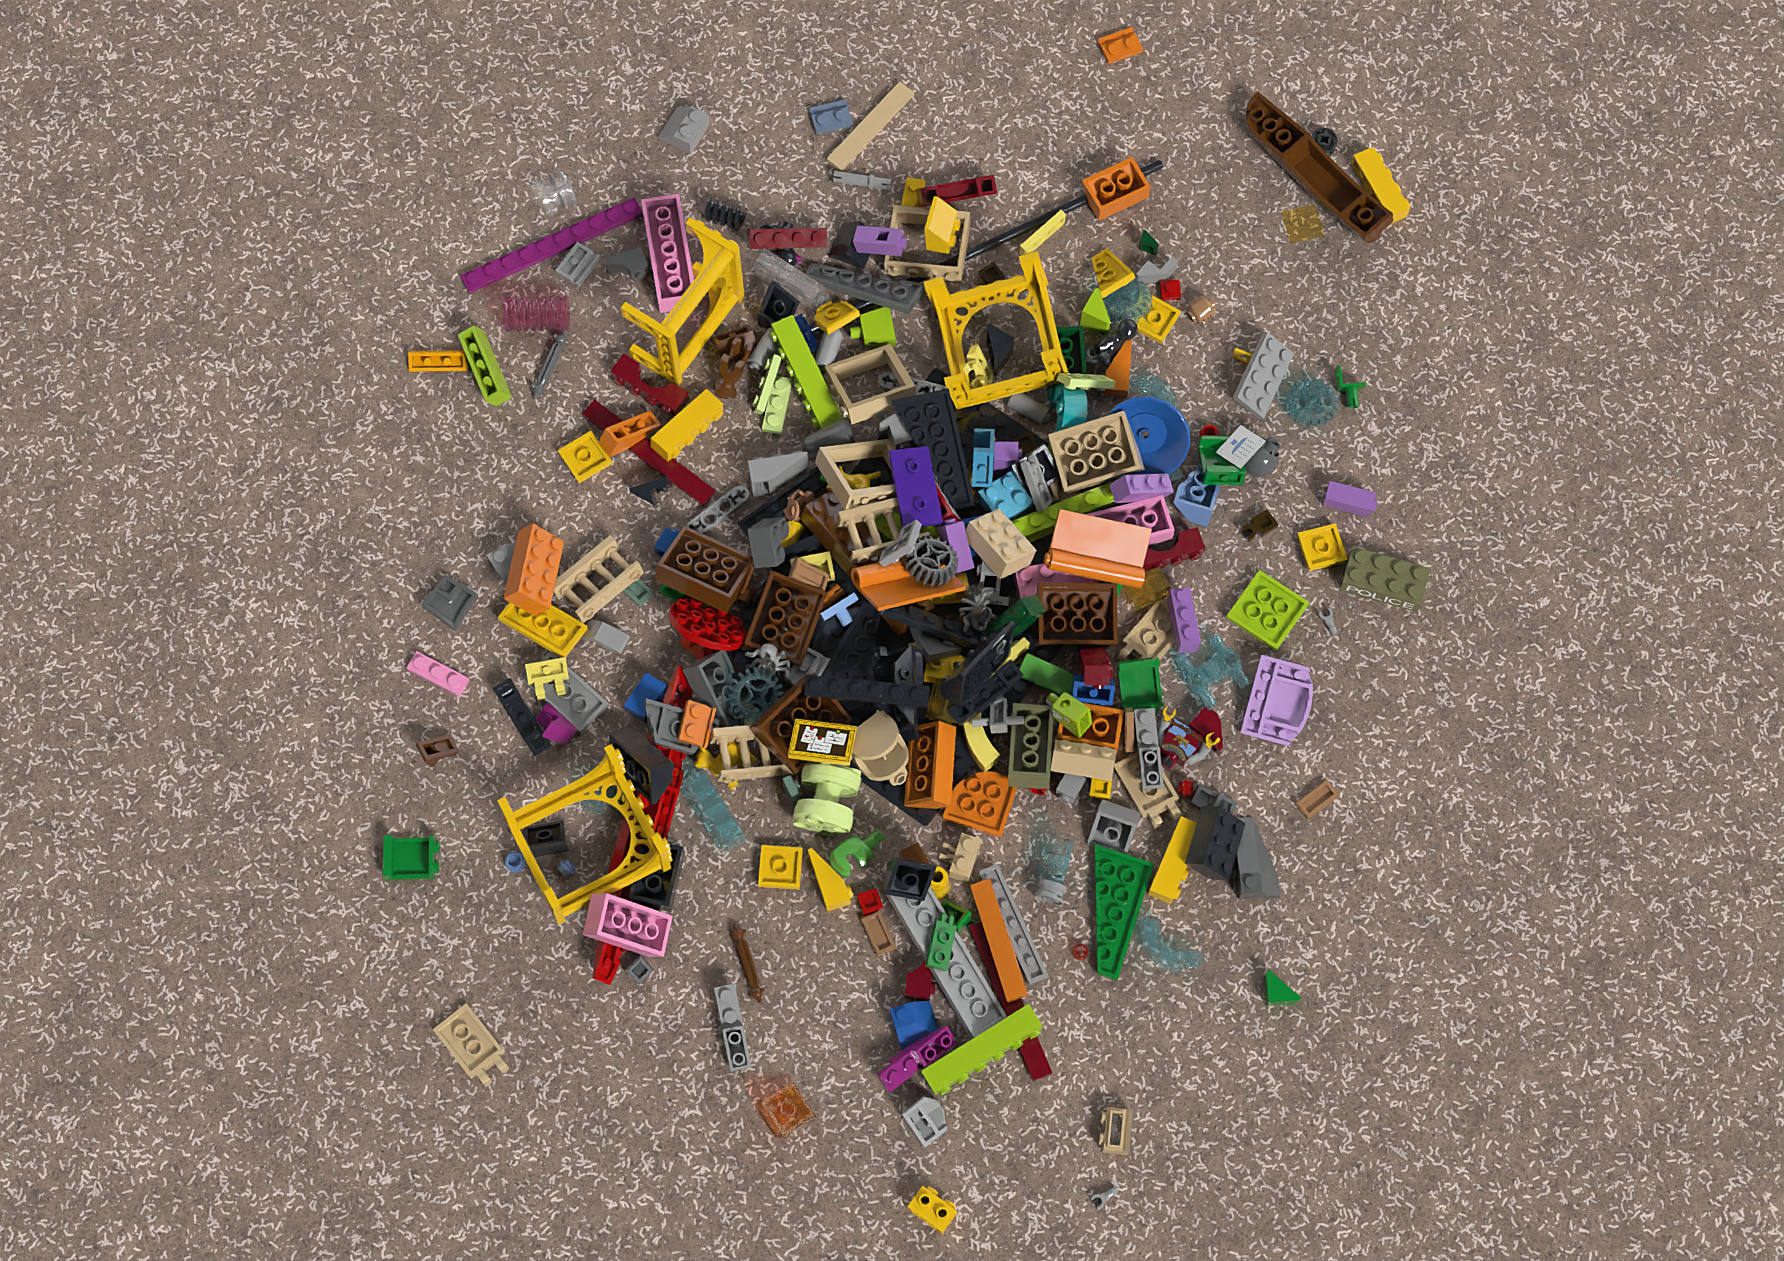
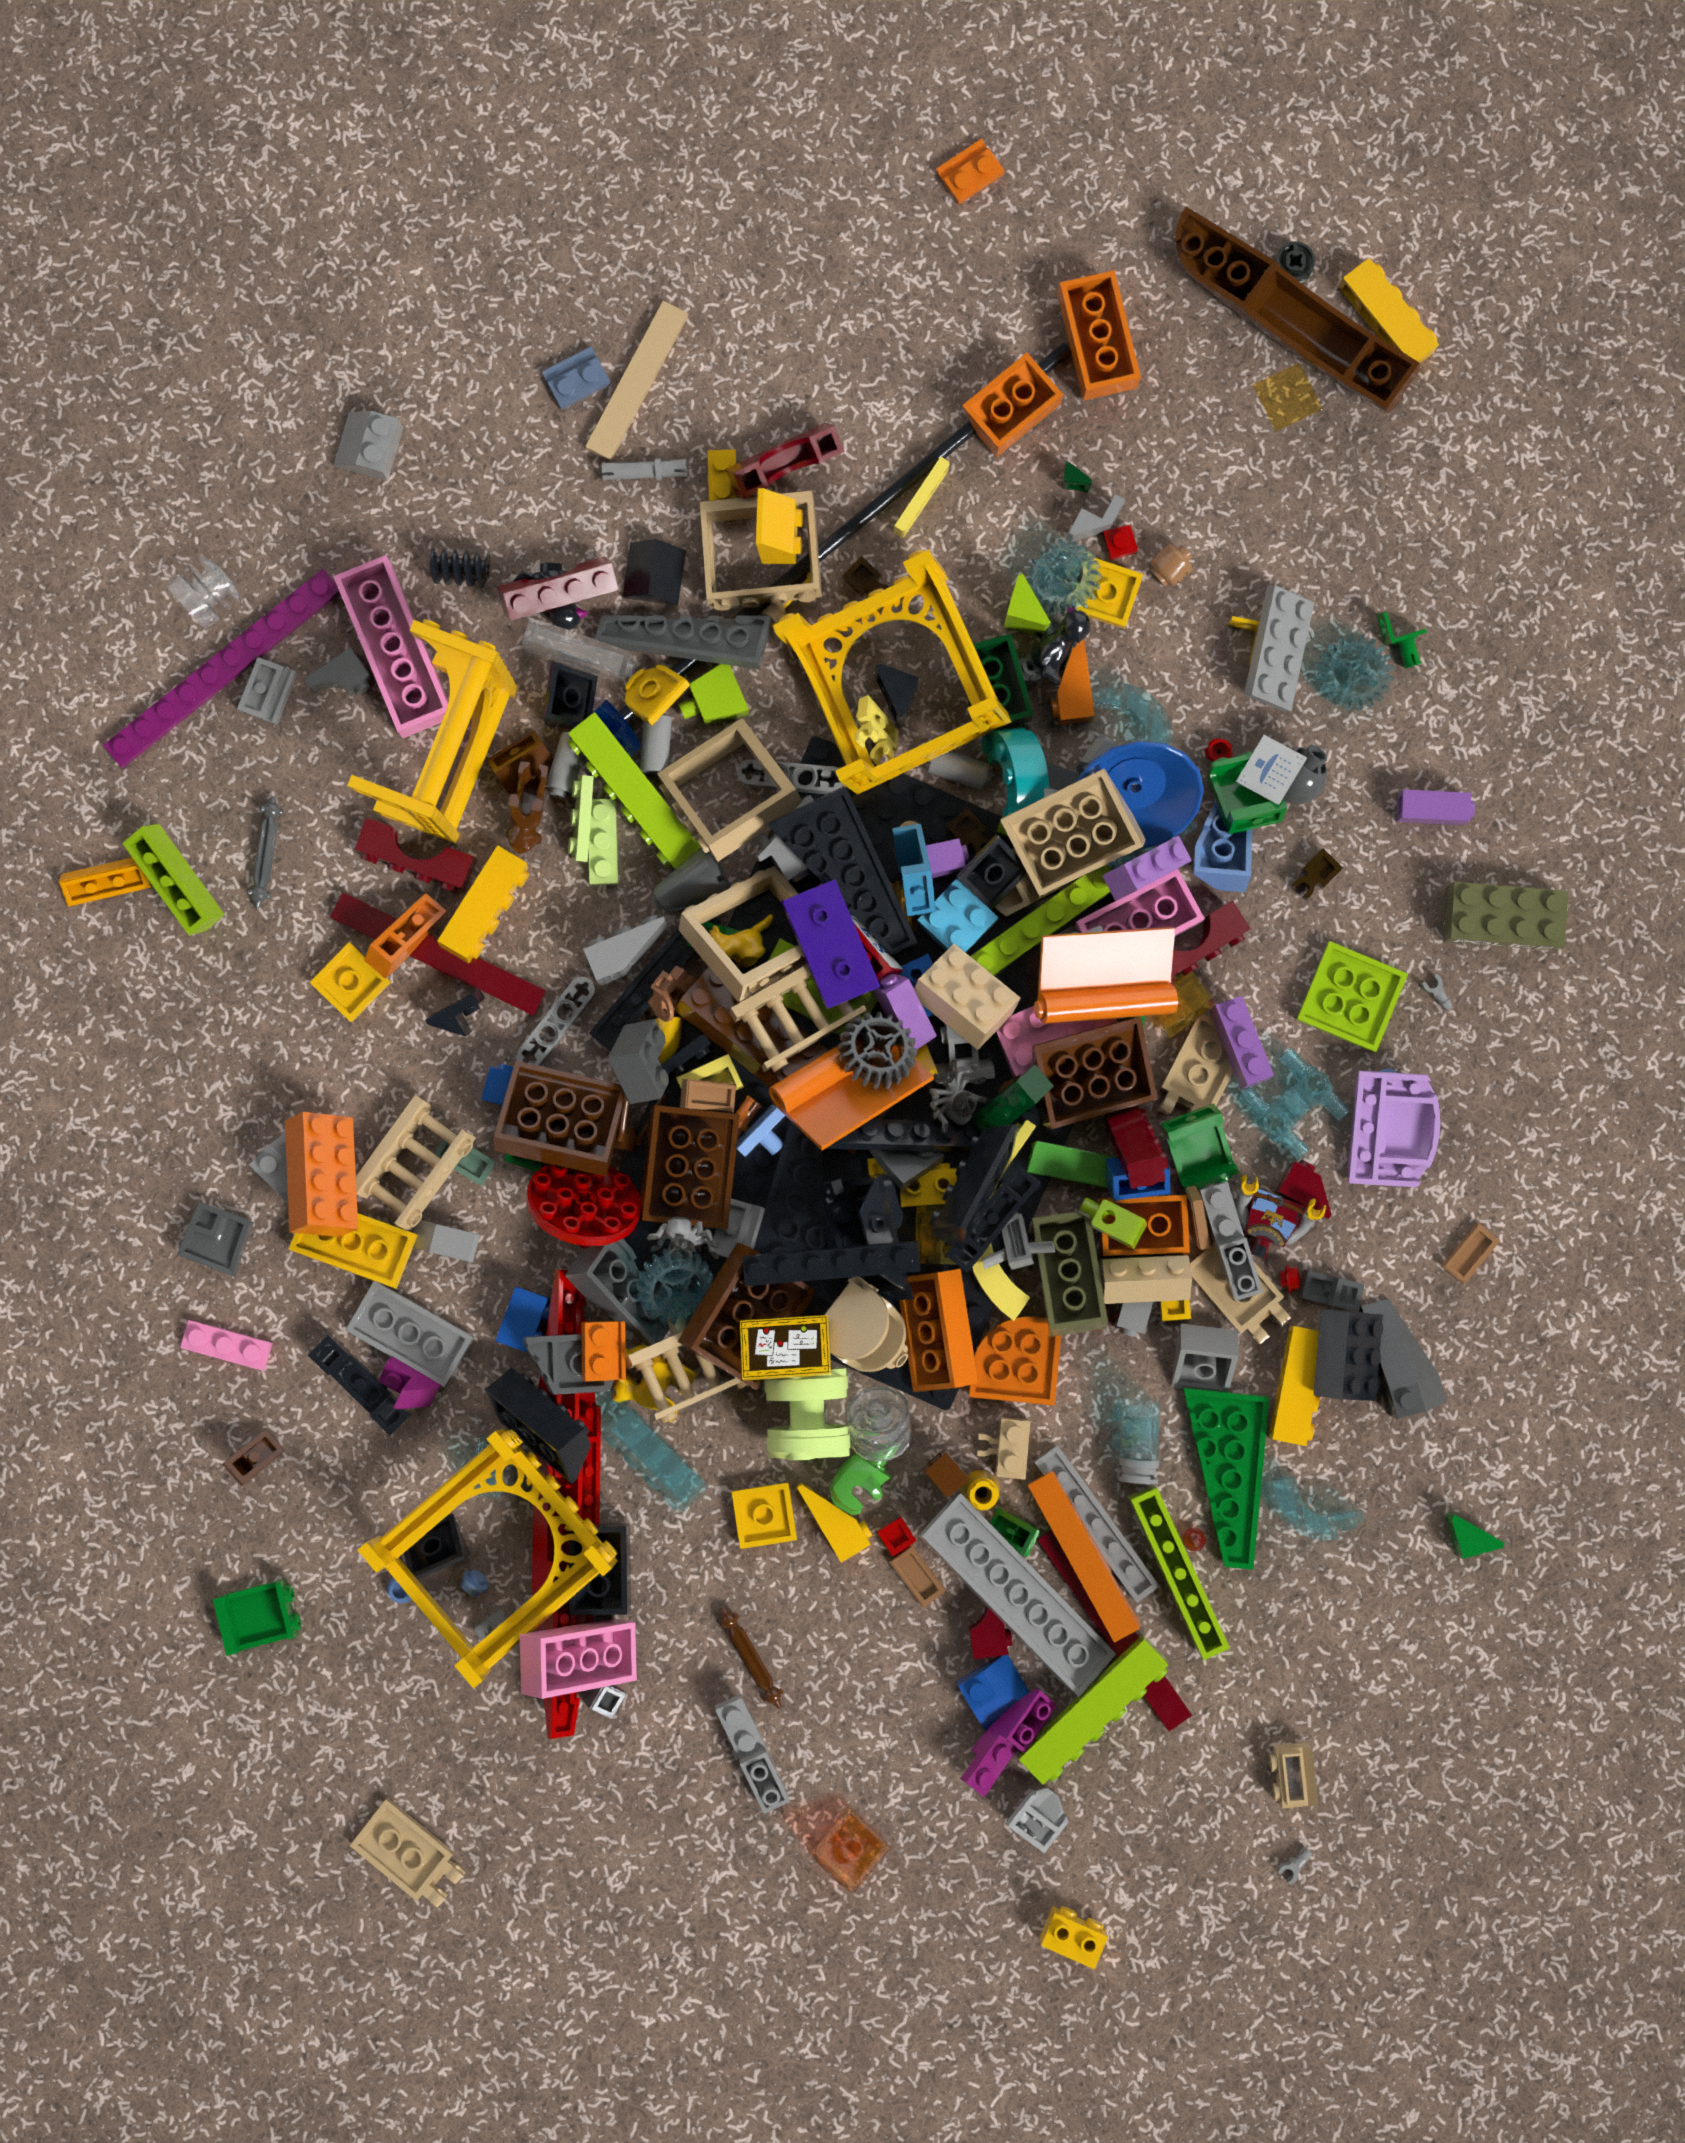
camera: 15 degrees left, 15 degrees up
(533, 319) = (212, 778): clear pink piece -> none
(546, 672) = (377, 1315): light yellow plate -> none
(792, 790) = (756, 1409): sand green plate -> none
(875, 817) = (879, 1423): none -> clear wheel
(879, 240) = (692, 566): medium lavender brick -> none
(903, 546) = (836, 1041): light grey plate -> none
(908, 878) = (946, 1514): black slope -> none
(941, 943) = (1009, 1584): green hinge -> none
(1036, 483) = (998, 894): light grey hinge -> none
(1063, 967) = (1178, 1572): none -> lime brick
(1086, 381) = (1034, 721): yellowish green plate -> none
(1110, 272) = (1032, 539): yellow wing -> none
(1183, 158) = (1098, 335): none -> orange brick
(1322, 547) = (1409, 887): yellow plate -> none

